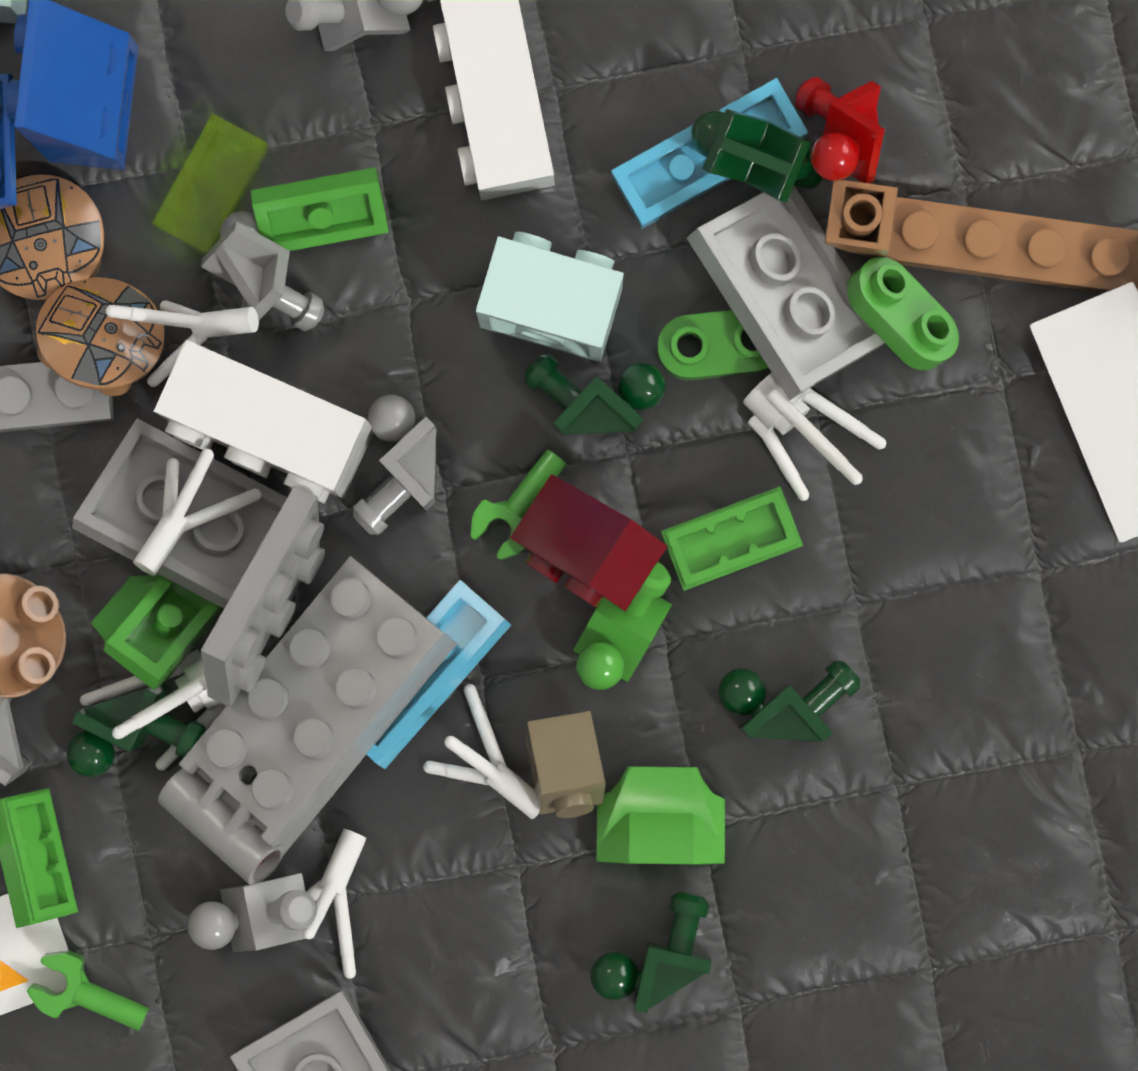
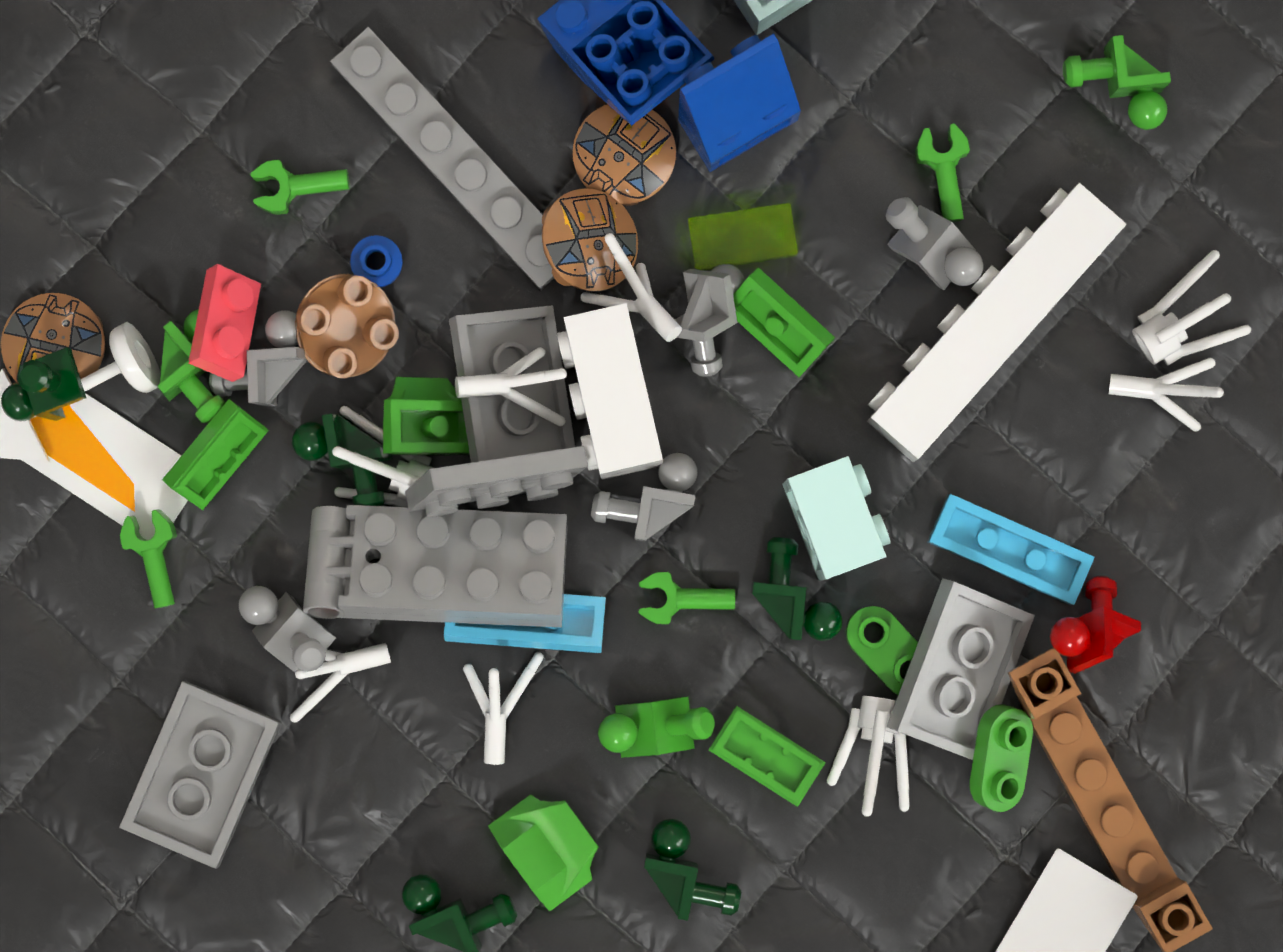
camera: 50 degrees right, 0 degrees up
(565, 764) = (535, 758): dark tan brick -> none
(587, 542) = (692, 665): dark red brick -> none
(754, 152) = (1032, 580): dark green piece -> none

